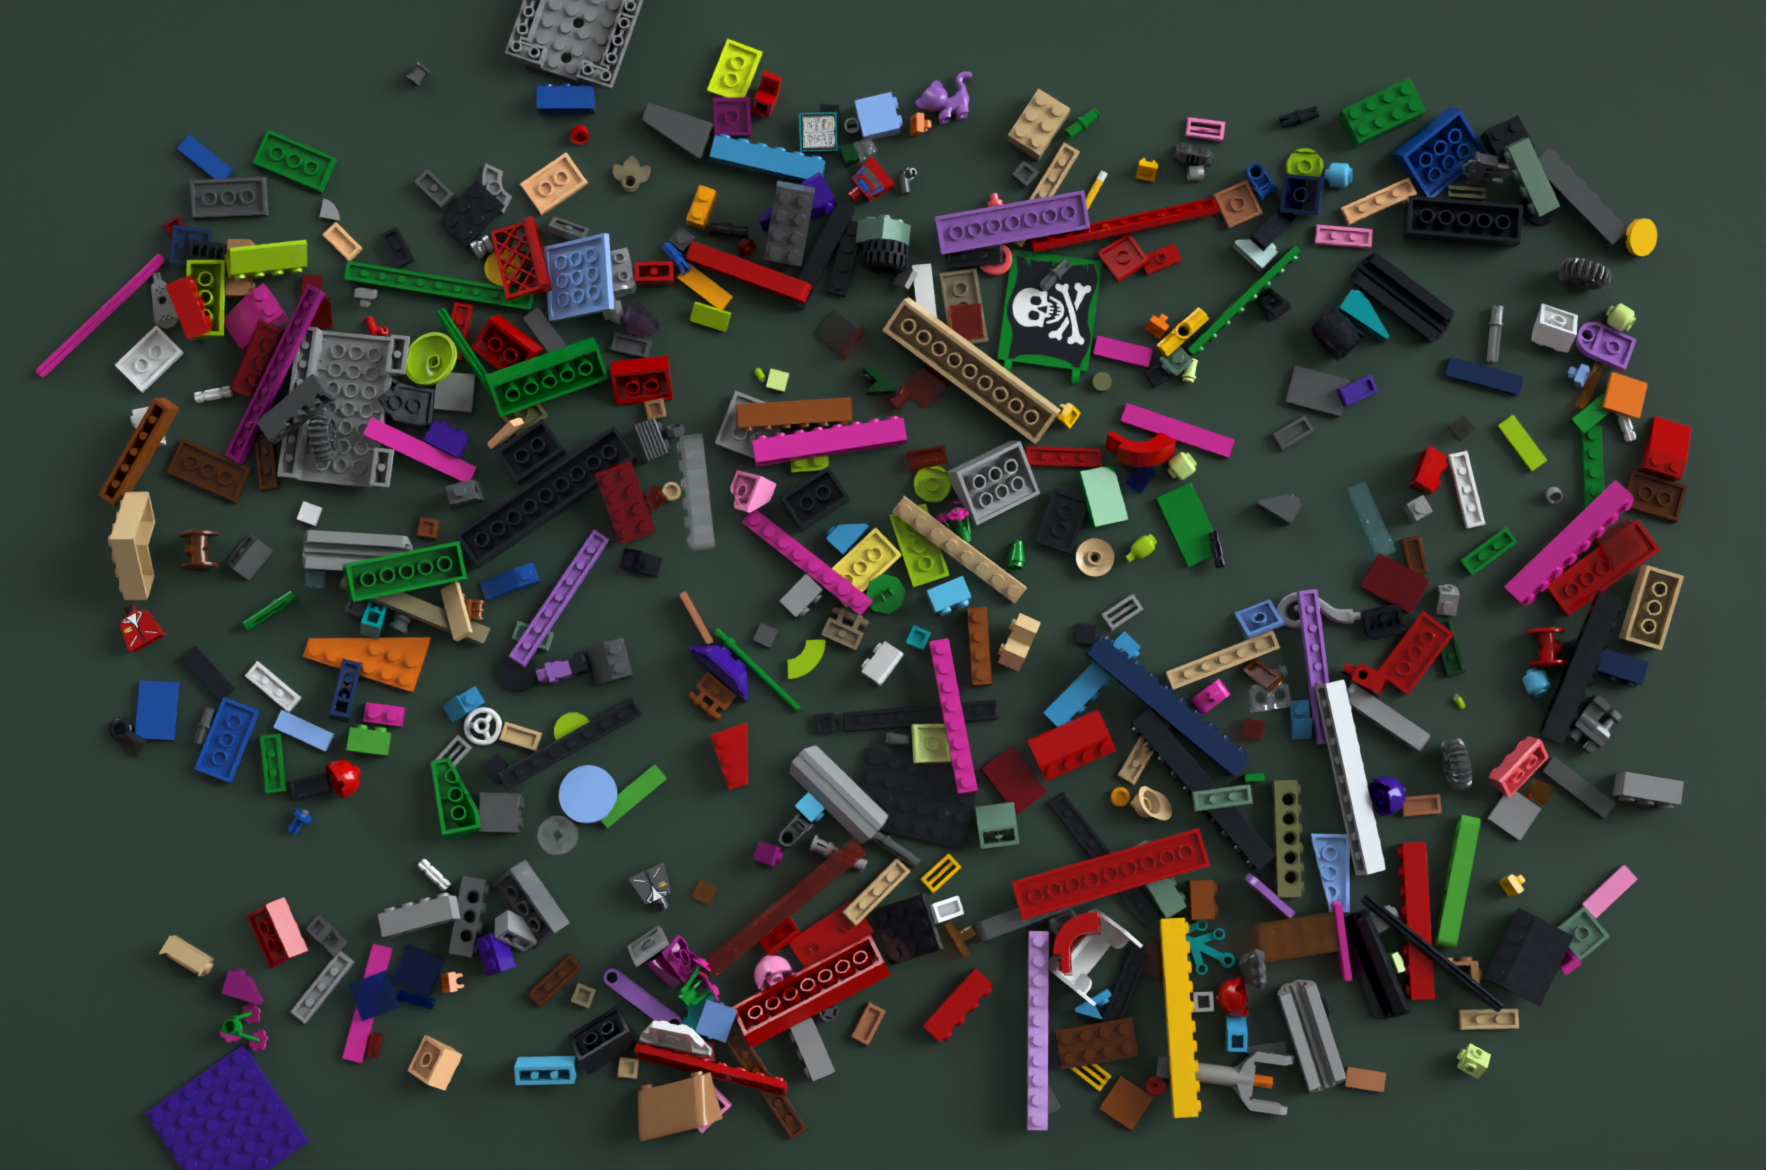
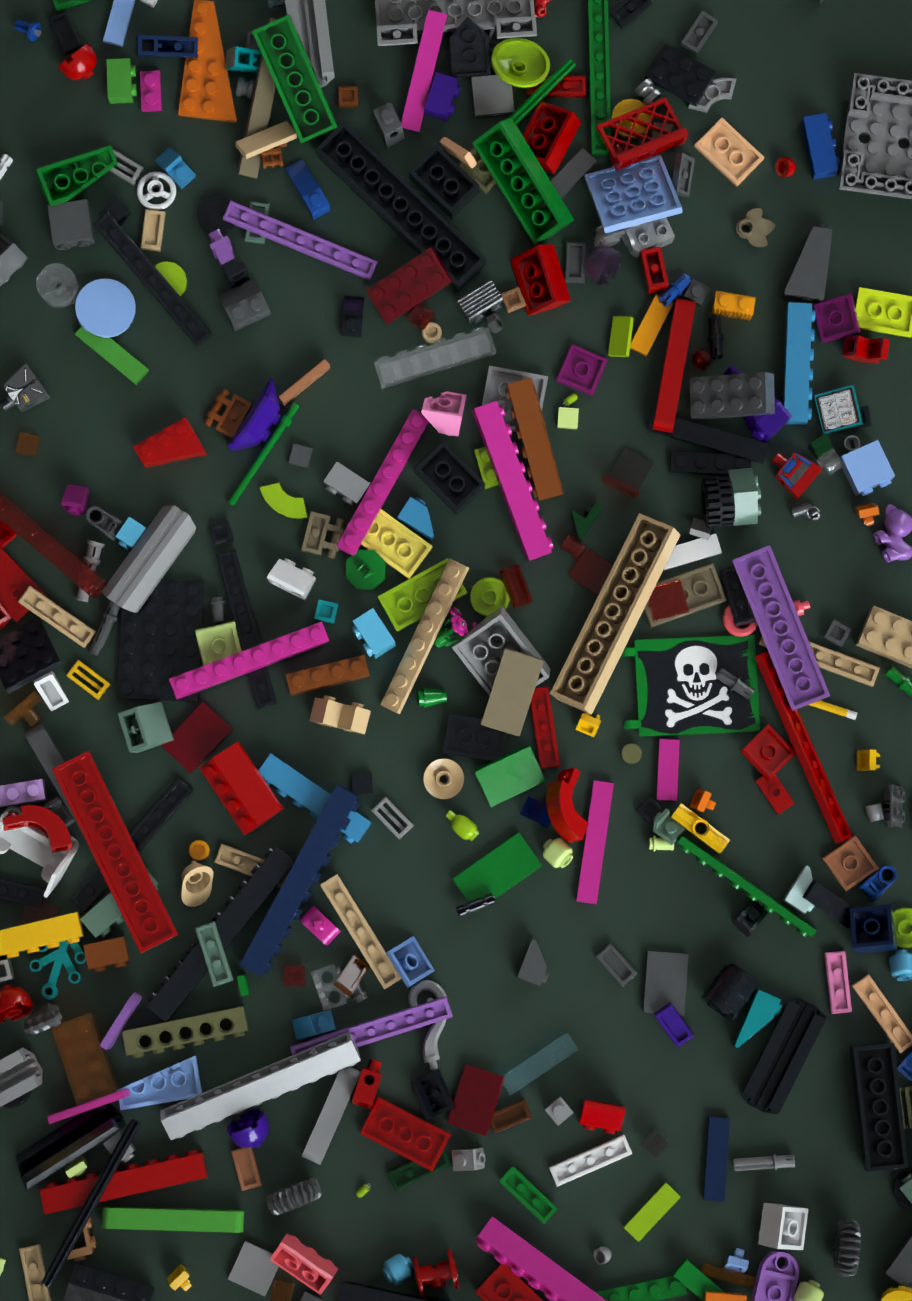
camera: 80 degrees right, 0 degrees up
(734, 359) = (581, 370): none -> magenta tile
(1028, 477) = (512, 692): none -> dark tan tile

